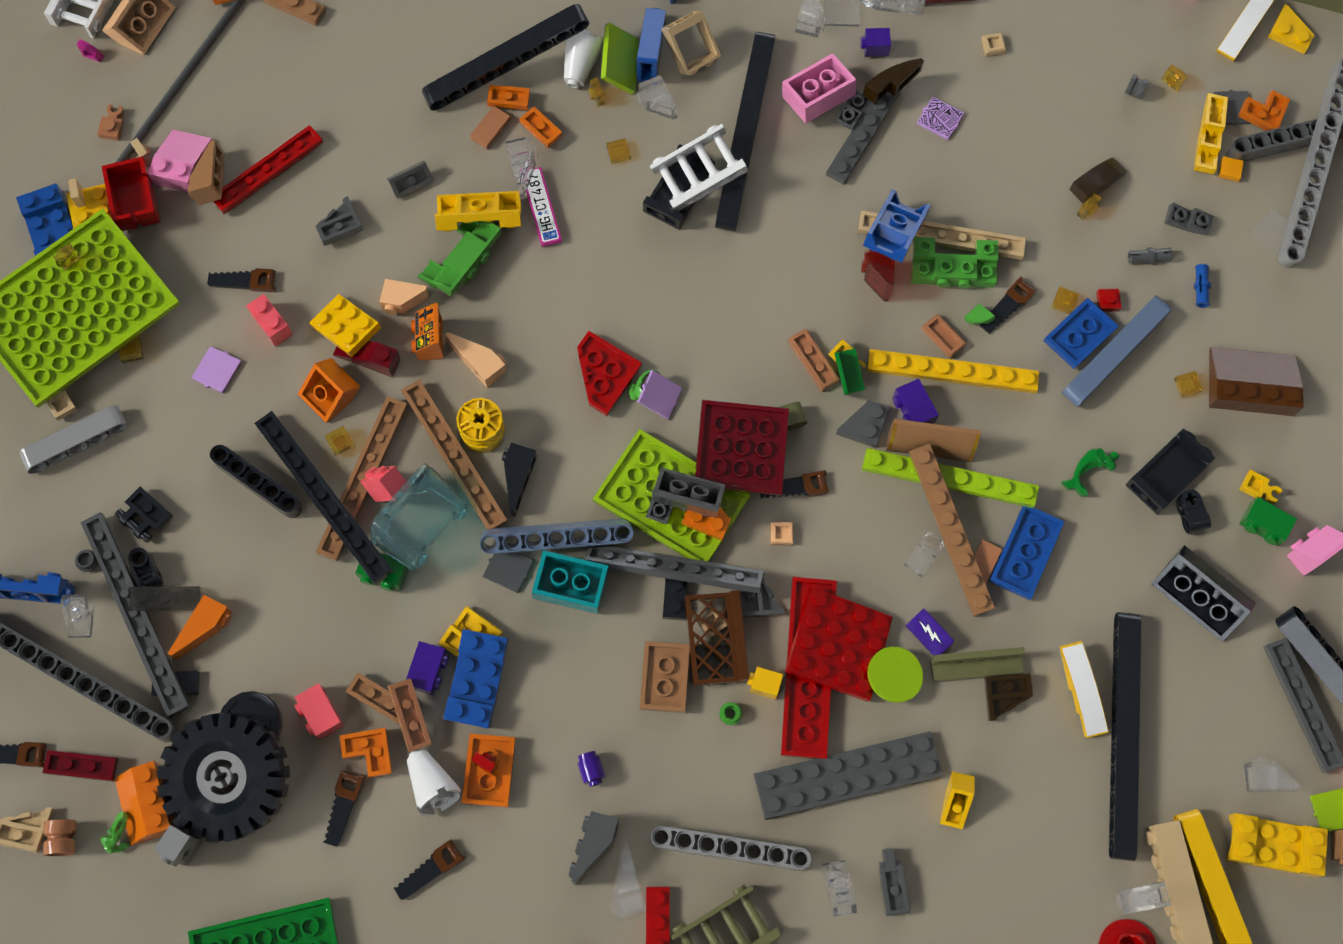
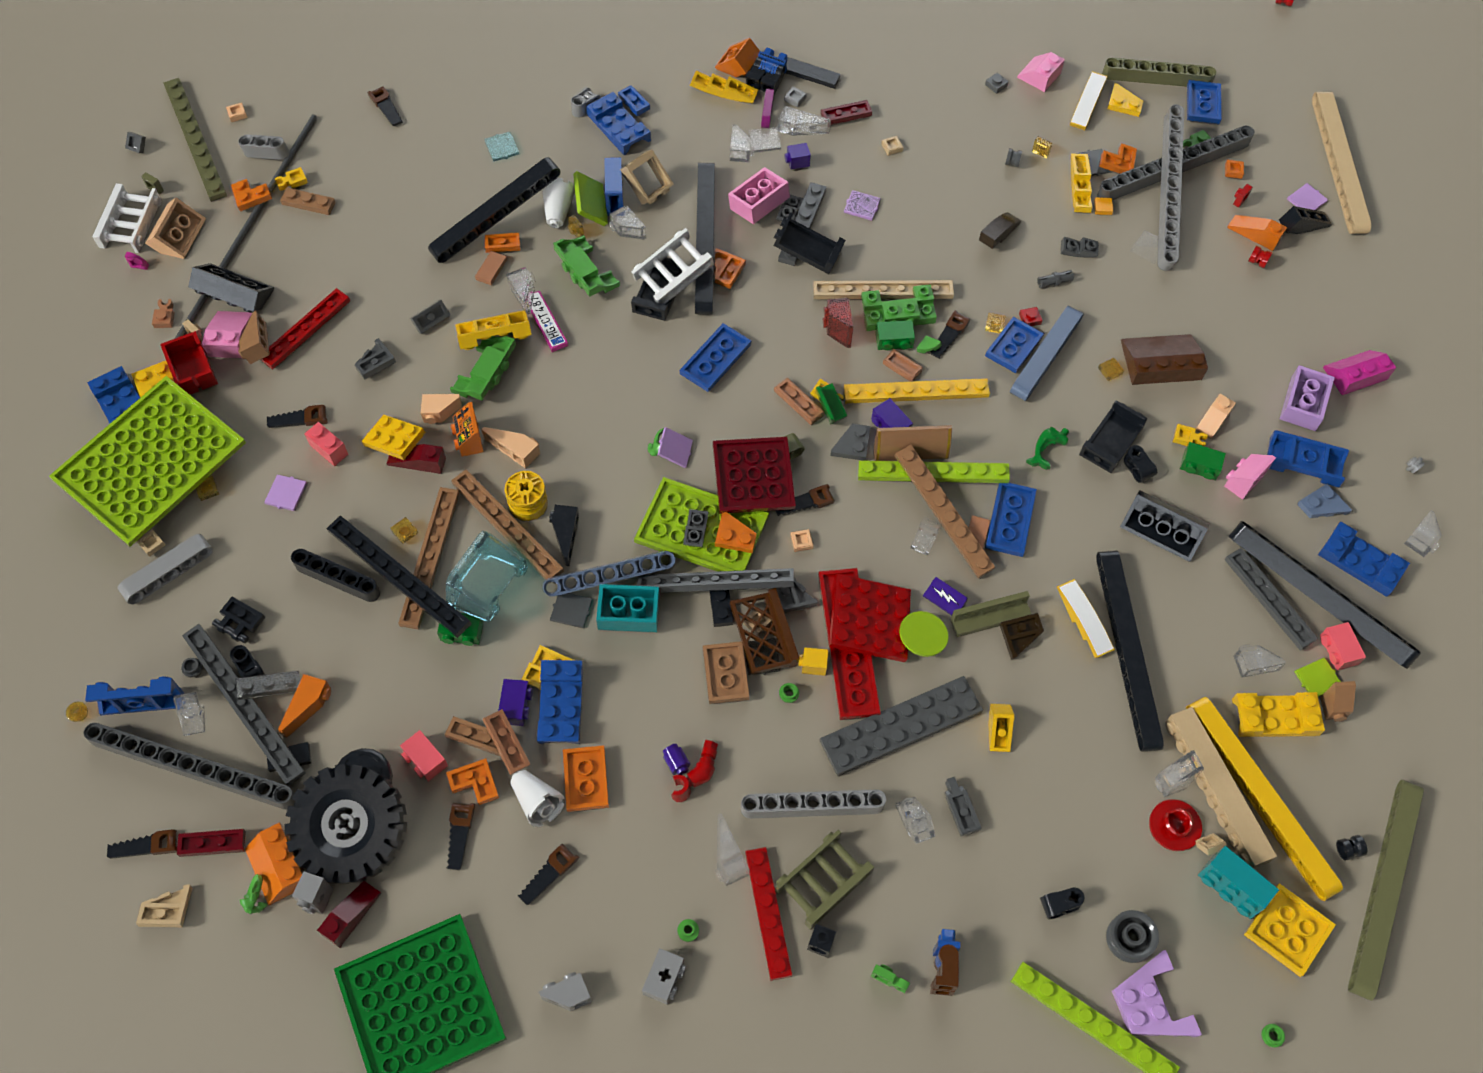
camera: 10 degrees left, 10 degrees down
(59, 837) = (200, 907): nougat wheel -> none
(66, 256) = (140, 417): clear yellow plate -> none
(76, 192) = (140, 369): tan tile -> none
(190, 103) = (230, 287): none -> slope
(212, 873) = (348, 914): none -> dark red slope
(328, 389) = (387, 490): orange slope -> none
(383, 482) = (448, 553): coral brick -> none
(485, 762) = (581, 769): red plate -> none
(540, 127) = (533, 260): orange plate -> none
(594, 151) = (581, 268): none -> bright green bracket
(597, 841) = (695, 817): dark grey slope -> none
(605, 371) = (624, 438): red plate -> none
(615, 789) = (699, 774): none -> red piece
(618, 151) = (603, 266): clear yellow tile -> none
(688, 492) = (716, 515): dark grey slope -> none
(728, 288) = (715, 357): none -> blue plate
(763, 175) = (727, 268): none -> orange wing
(864, 162) = (807, 244): none -> black panel
(892, 80) = (817, 180): dark brown slope -> none
(895, 228) = (844, 285): blue piece -> none
(942, 297) = (895, 335): none -> green brick
(1089, 207) = (998, 249): clear yellow plate -> none
(1202, 285) = (1103, 294): blue pin -> none
(1298, 467) = (1216, 415): none -> light nougat slope

